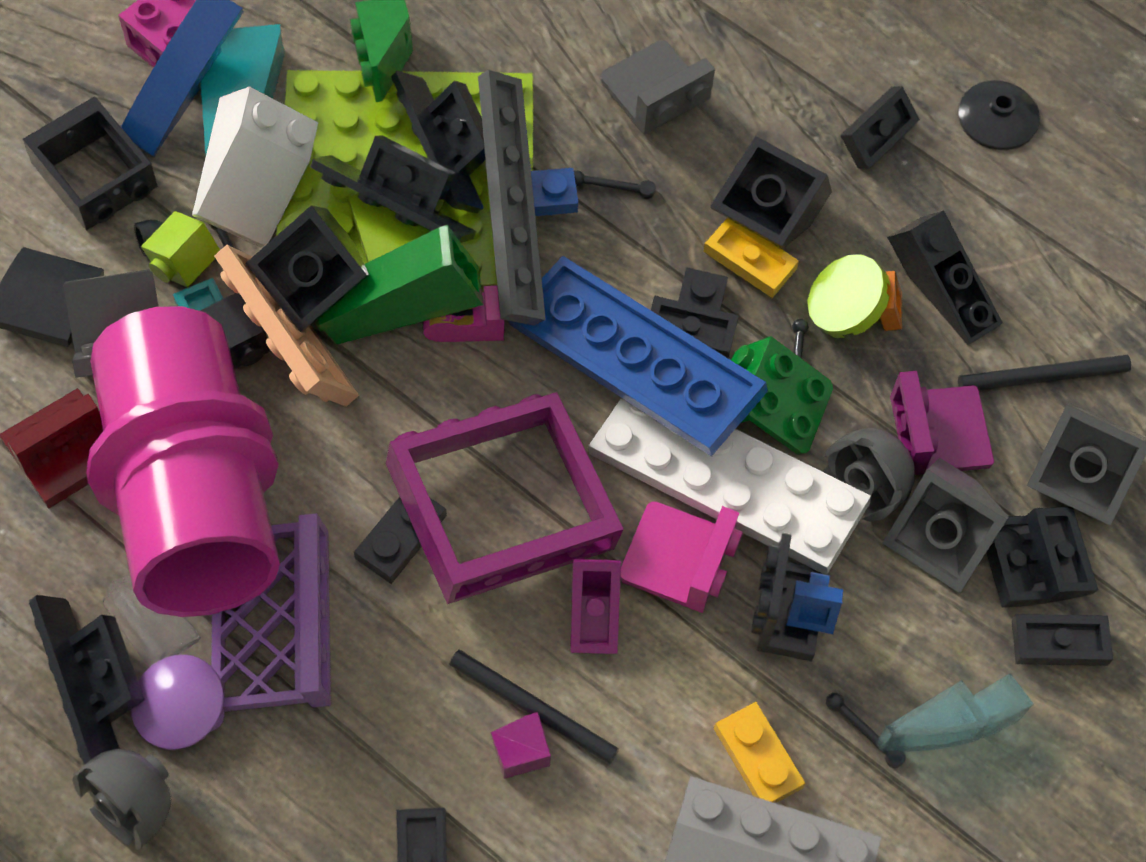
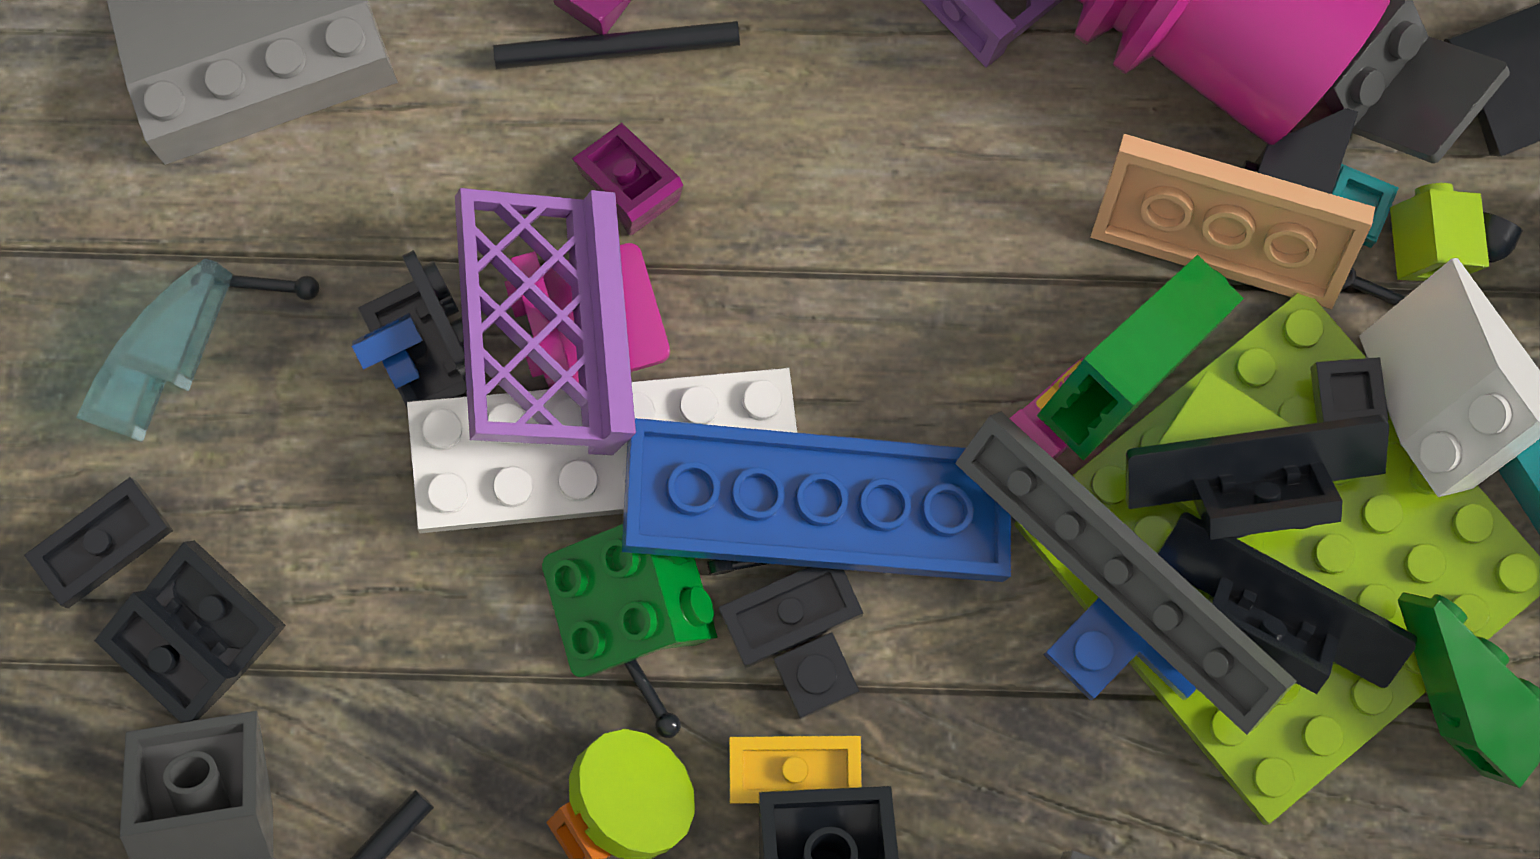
camera: 145 degrees right, 15 degrees up
(308, 193) = (1348, 389): none -> black plate
(309, 266) = (1263, 294): black slope -> none
(392, 542) = (907, 118): black plate -> none
(524, 560) = (741, 168): magenta window -> none
(645, 189) = (998, 775): black hinge -> none
(687, 523) = (597, 327): none -> medium lavender fence
(759, 754) = (346, 169): yellow plate -> none
(875, 465) = (442, 577): dark grey cylinder -> none
(941, 424) = (403, 710): magenta bracket -> none
(947, 525) = (316, 584): dark grey slope -> none

